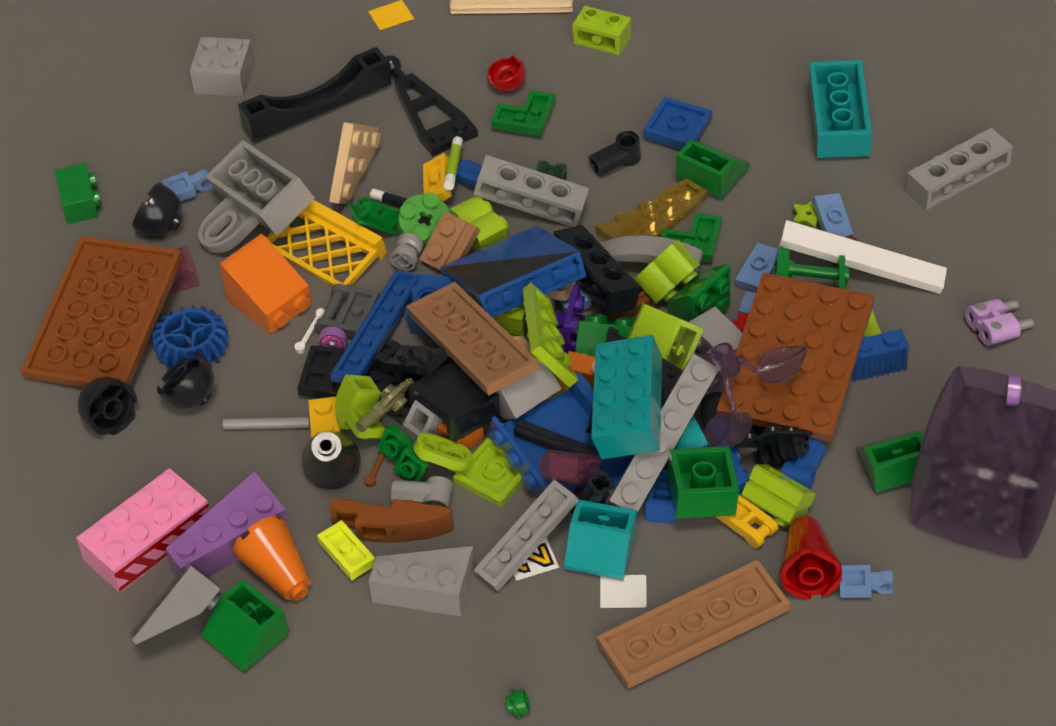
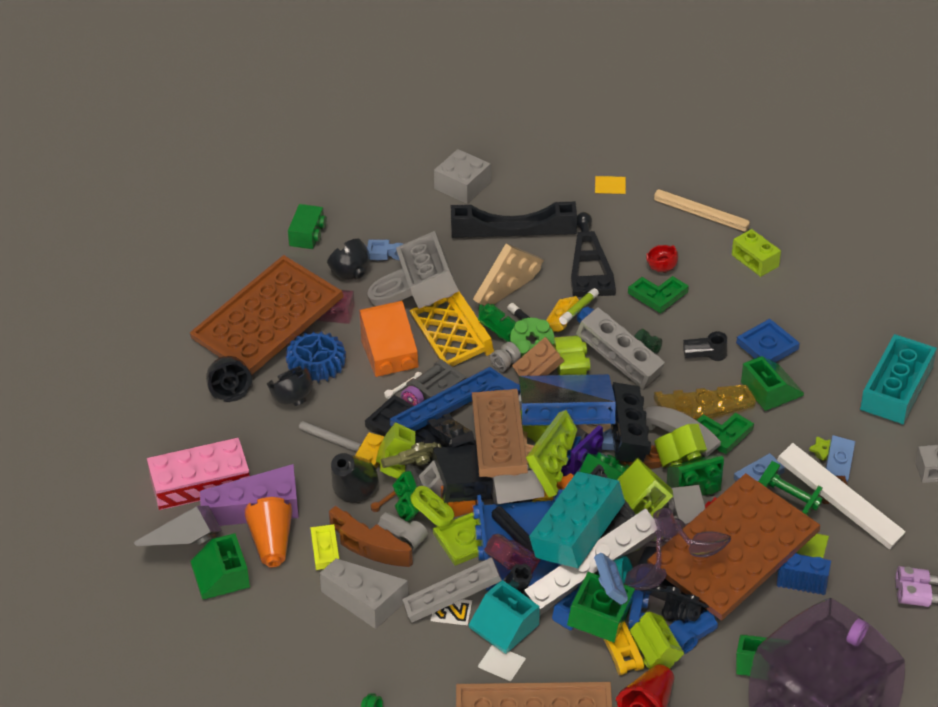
camera: 25 degrees right, 5 degrees down
(702, 446) = (610, 578): none -> medium blue plate

